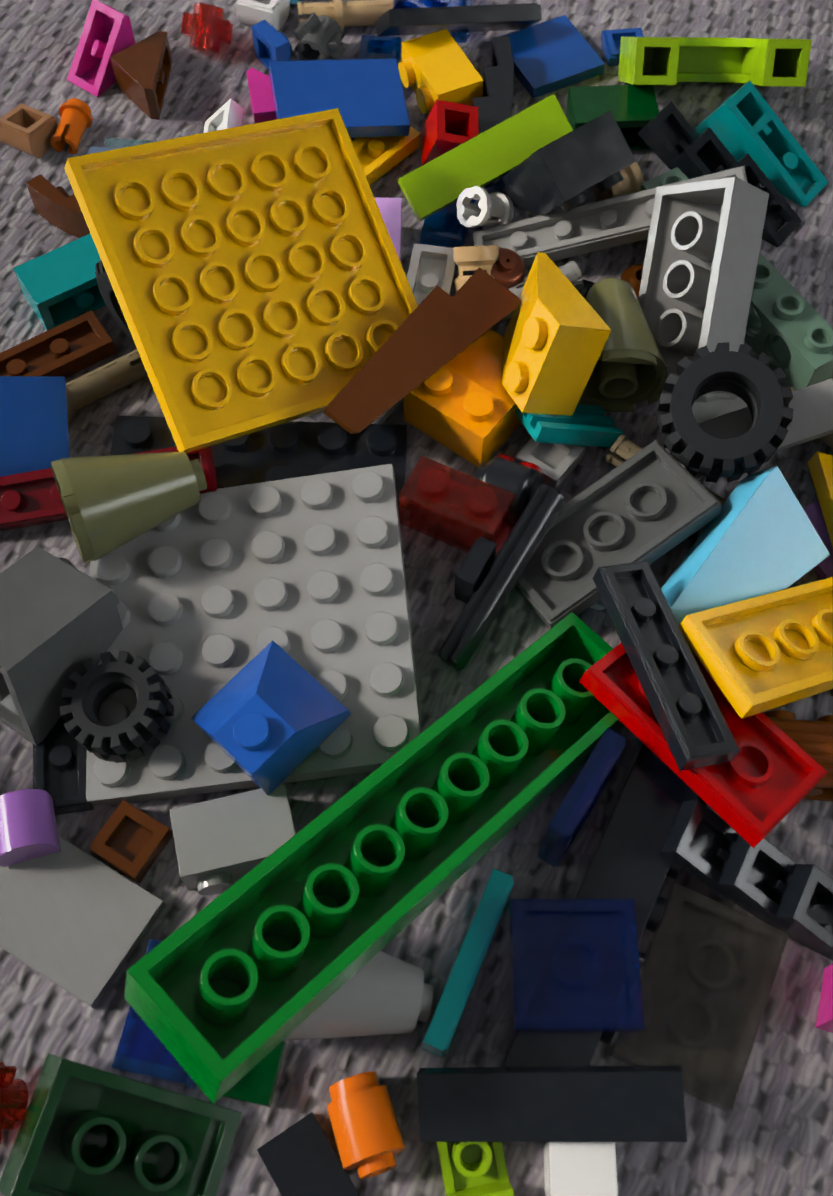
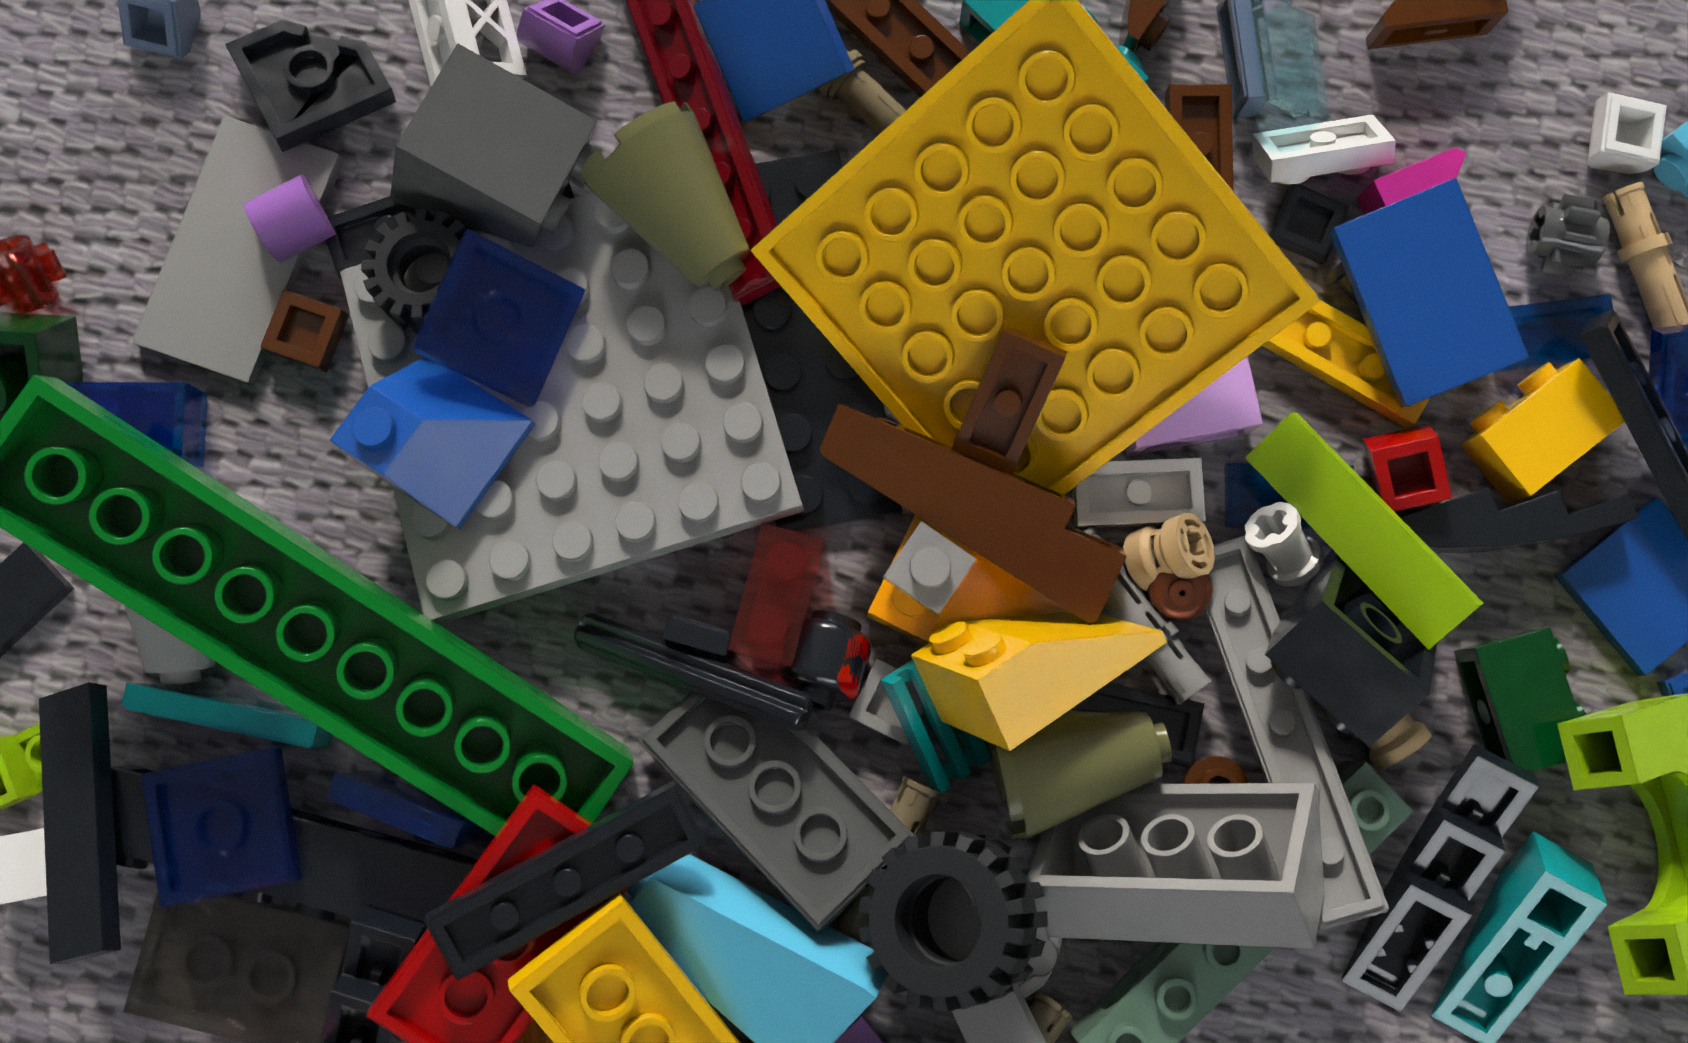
camera: 80 degrees right, 20 degrees up
(179, 644) = (498, 318): none -> clear blue tile
(206, 27) = (1549, 64): clear red gear -> none
(229, 836) = (298, 422): light grey brick -> none
(270, 44) = (1536, 171): blue plate -> none
(349, 308) = (1009, 400): none -> reddish brown plate
(364, 1125) = (58, 641): orange brick -> none
(461, 383) = (929, 568): none -> light grey plate

